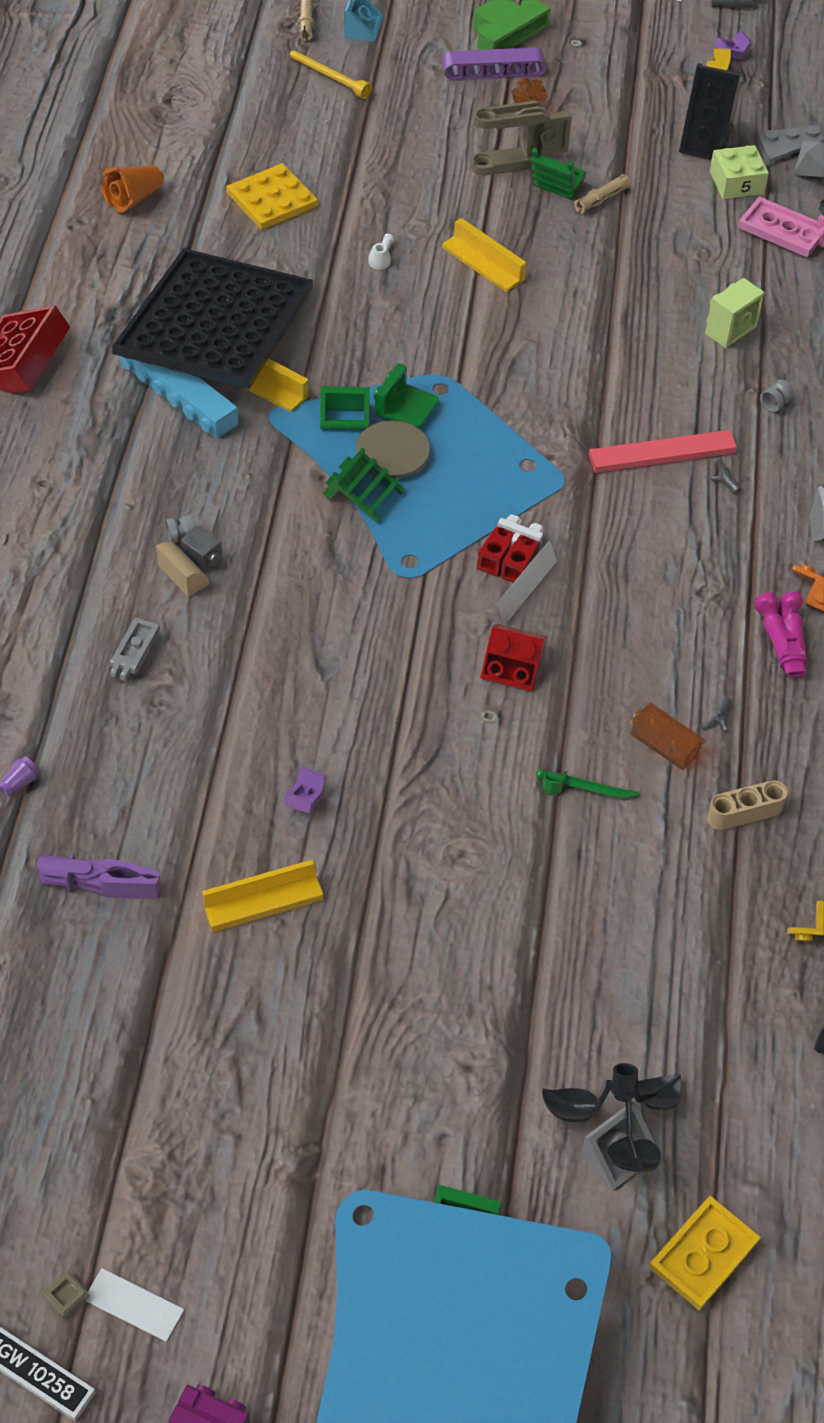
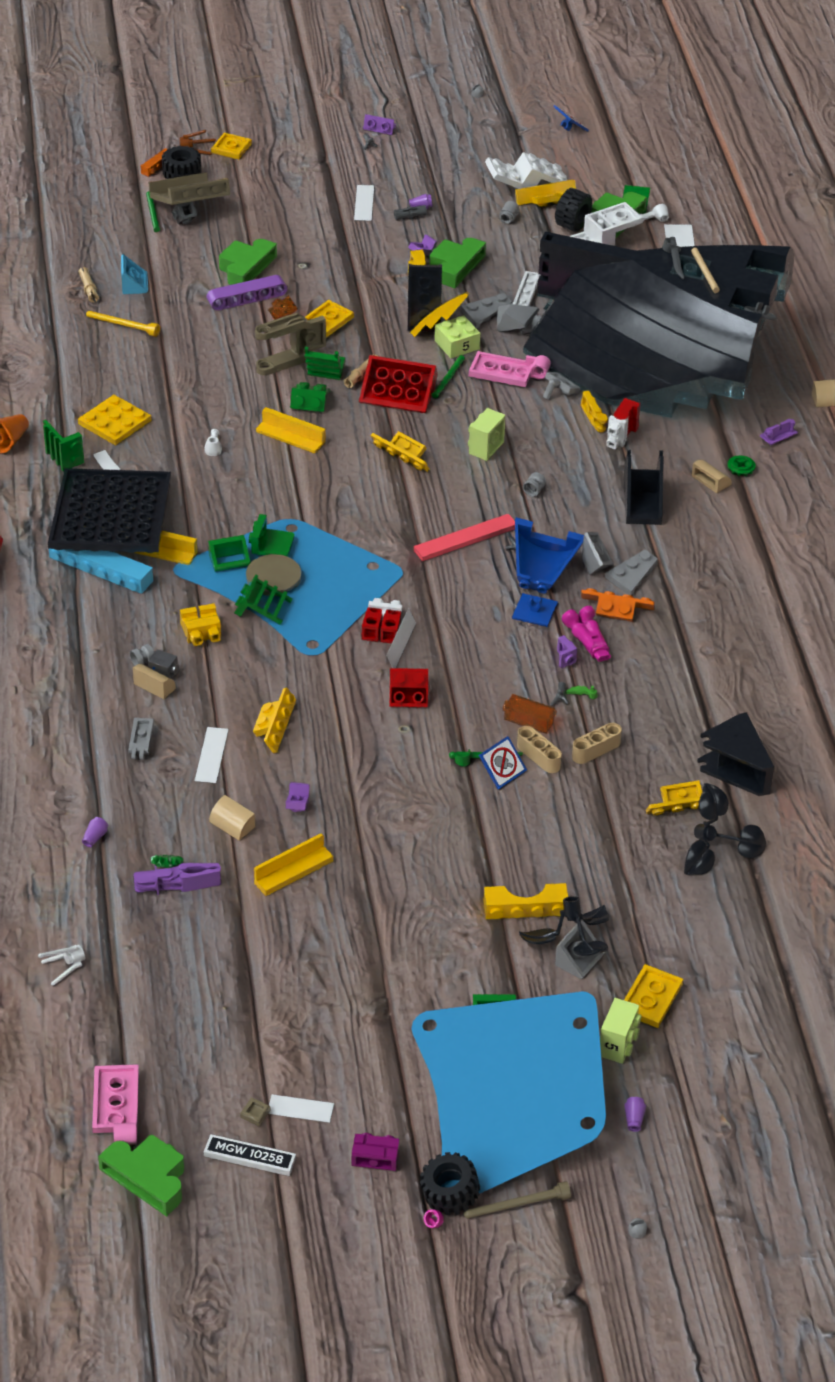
camera: 15 degrees left, 10 degrees down
(94, 846) = (166, 861): none -> green gear
(191, 224) = (66, 450): none -> green plate
(207, 800) = (232, 818): none -> tan brick
(218, 694) = (211, 755): none -> white sticker
(241, 249) = (105, 461): none -> white sticker
(272, 506) = (201, 628): none -> yellow hips
(318, 663) = (274, 719): none -> yellow bracket
(523, 215) = (309, 397): none -> green bracket
(532, 1036) = (502, 904): none -> yellow arch
(587, 114) = (335, 315): none -> yellow plate
(604, 805) = (502, 762): none -> piece
(623, 308) = (404, 447): none -> yellow bracket
(636, 1310) = (620, 1030): none -> yellowish green brick
(642, 221) = (398, 384): none -> red slope
(664, 806) = (539, 749): none -> tan beam
(713, 221) = (448, 376): none -> green bar
(723, 577) = (534, 610): none -> blue piece
(730, 135) = (444, 310): none -> yellow slope
(748, 653) = (567, 652): none -> medium lavender bracket
(752, 715) = (583, 690): none -> bright green piece
(754, 503) = (542, 557): none -> blue cone
(769, 71) = (457, 259): none -> bright green brick

